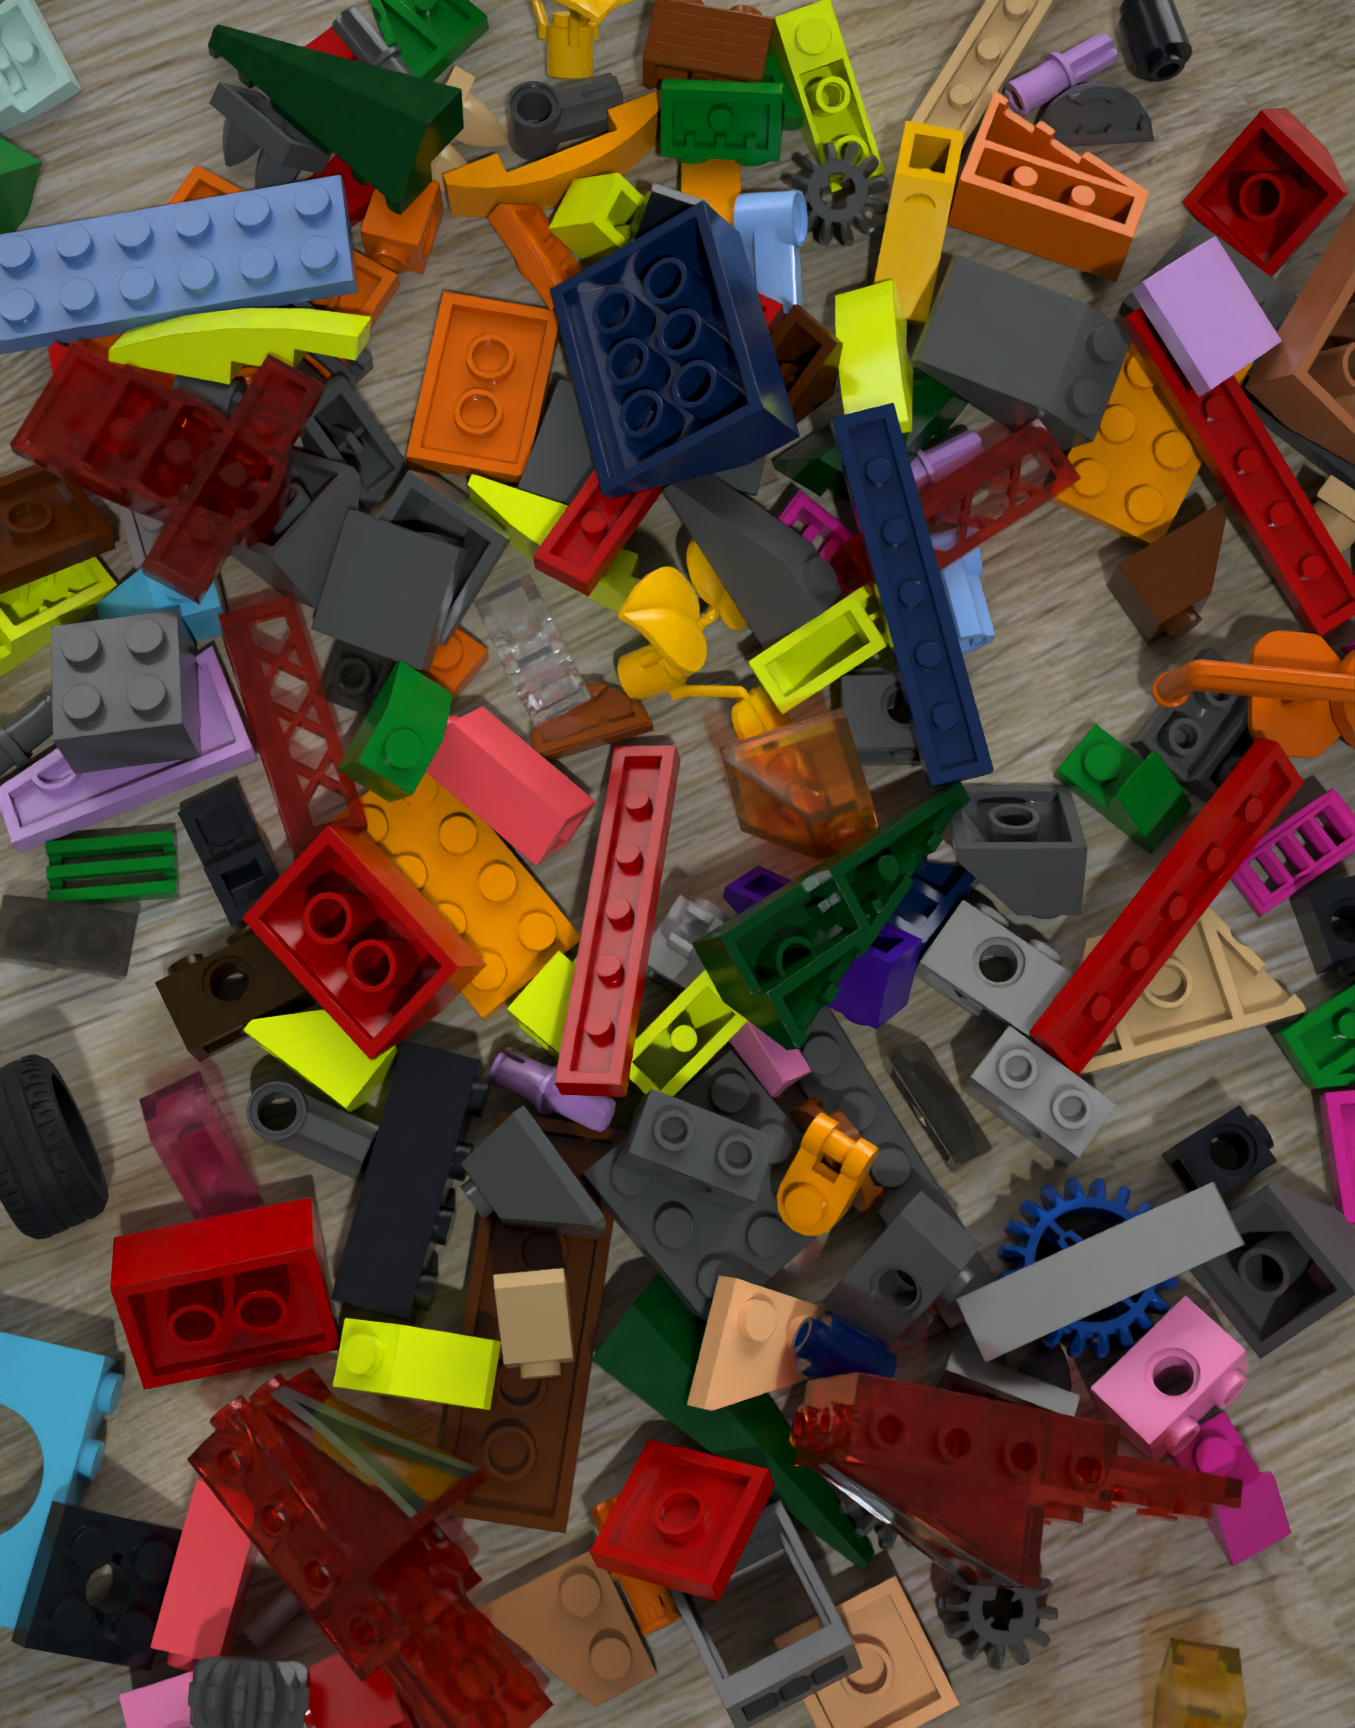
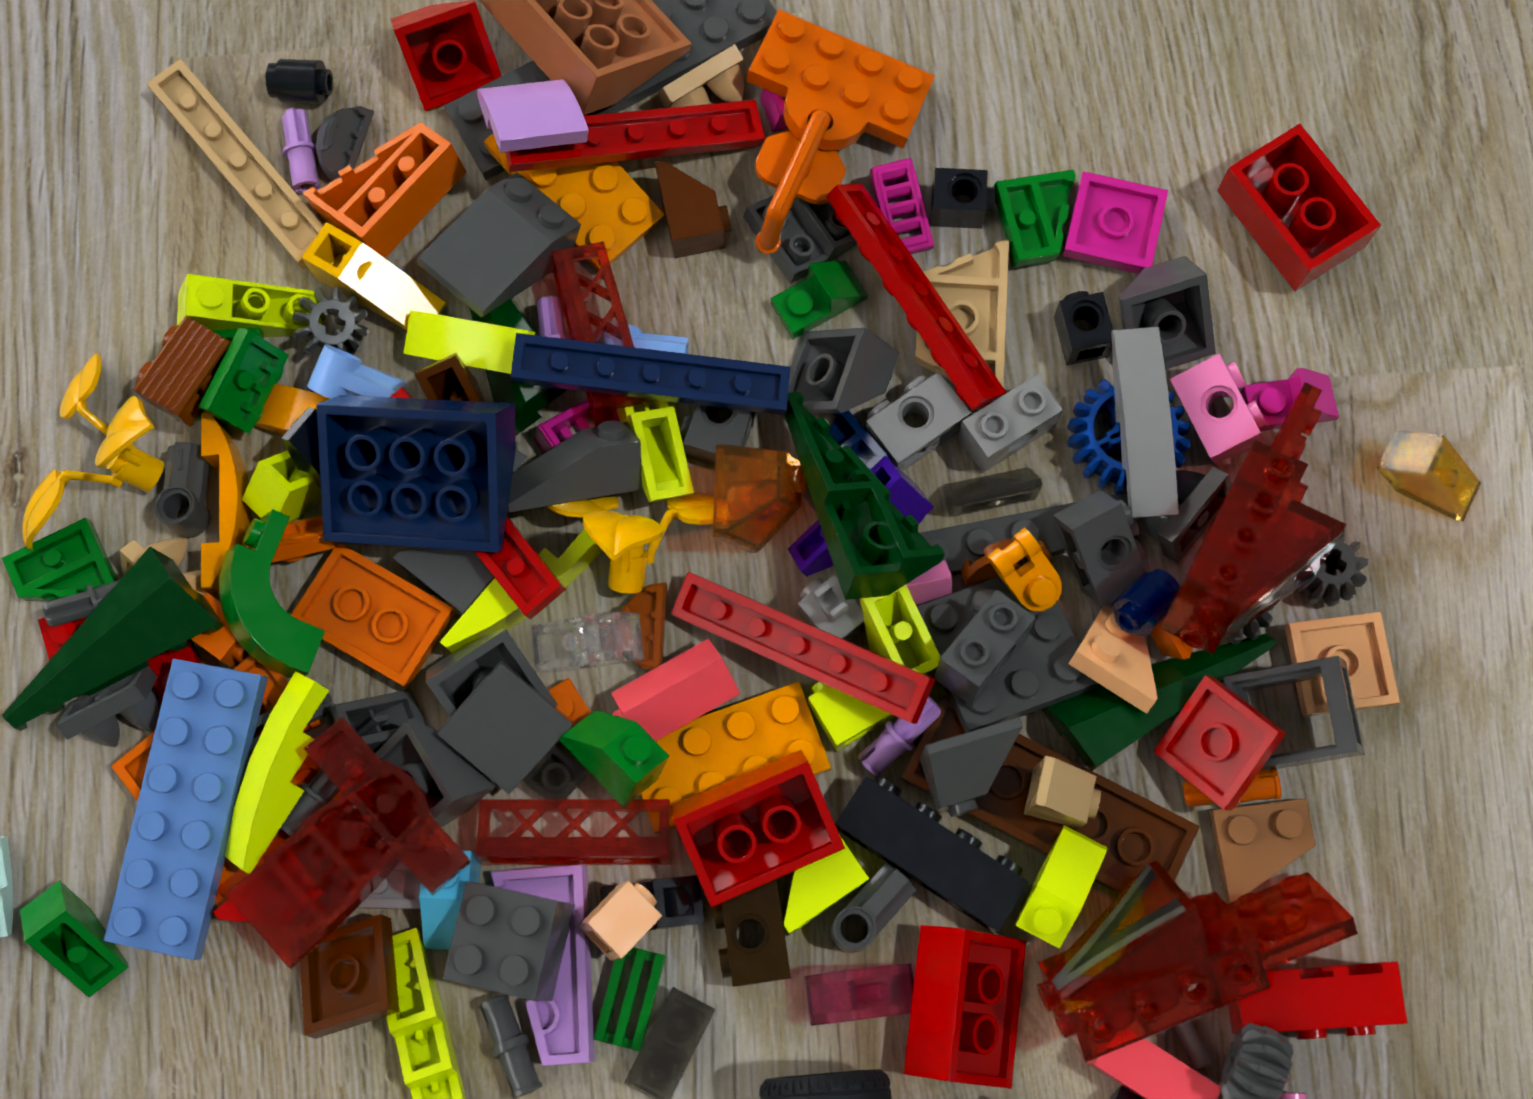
camera: 65 degrees left, 0 degrees up
(195, 817) = (621, 919): none -> light nougat brick
(426, 238) = (252, 609): none -> green arch

